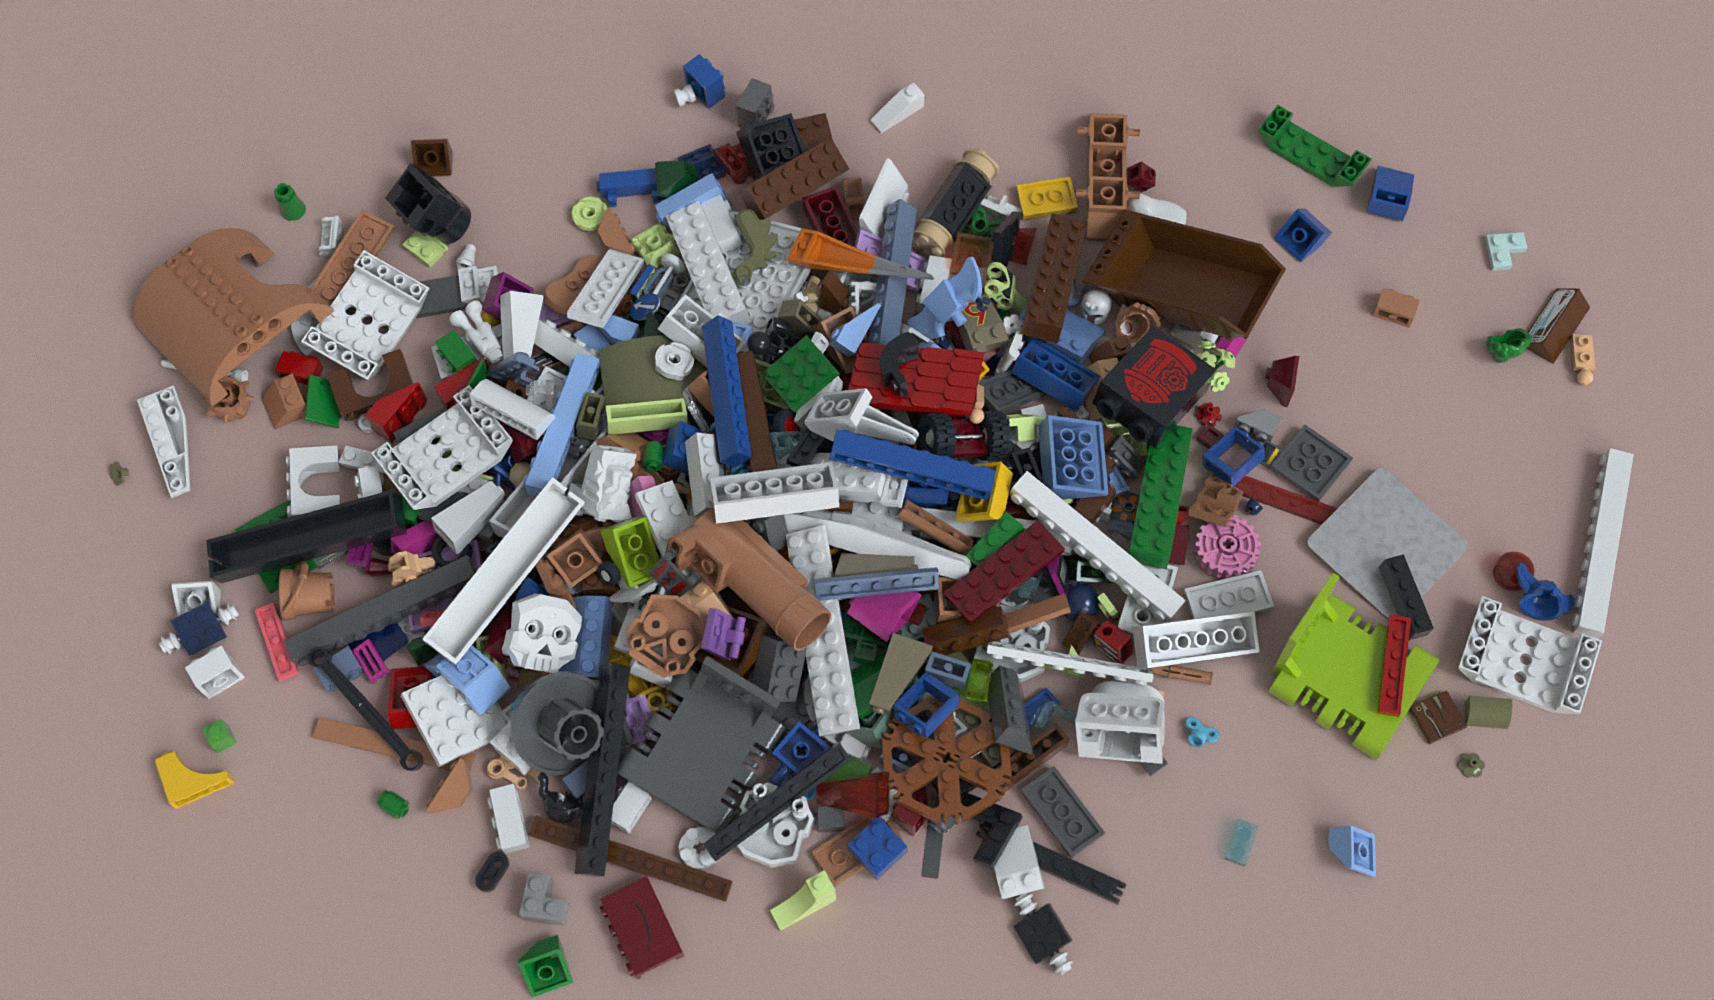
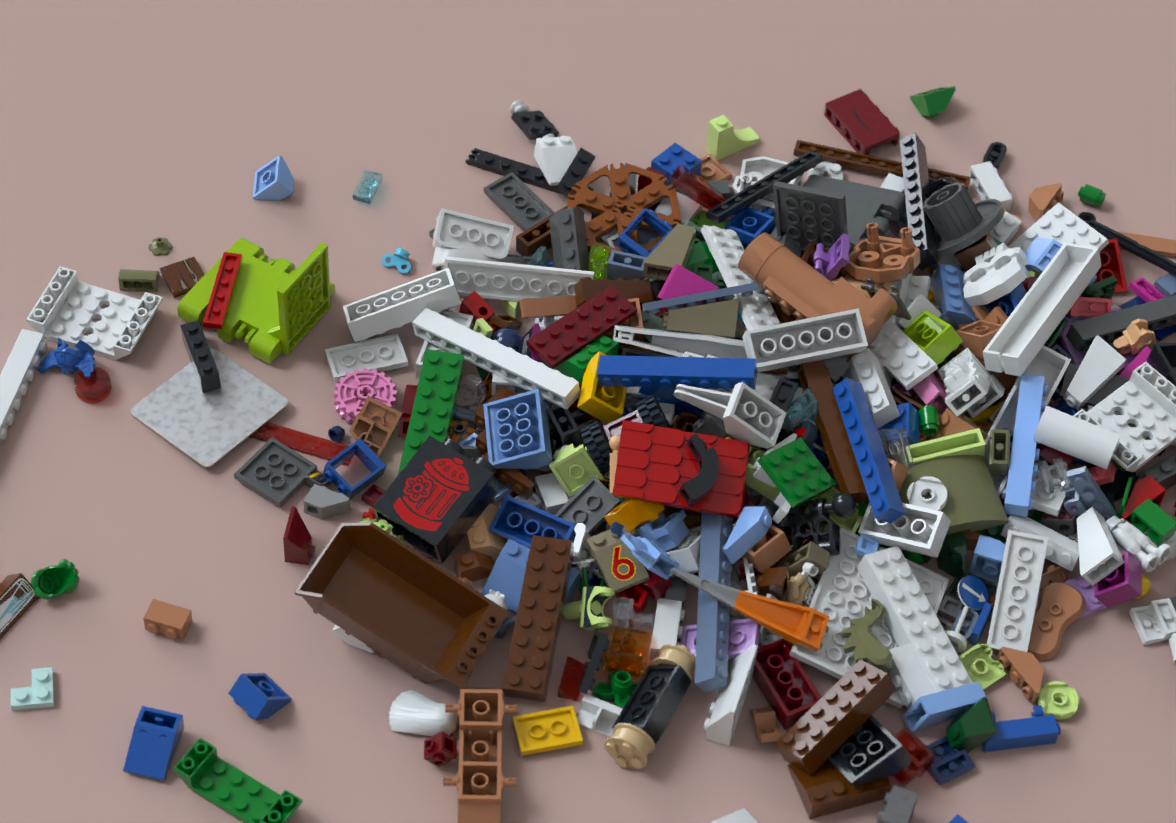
camera: 170 degrees right, 15 degrees down
(538, 905) = (946, 133): light grey brick -> none

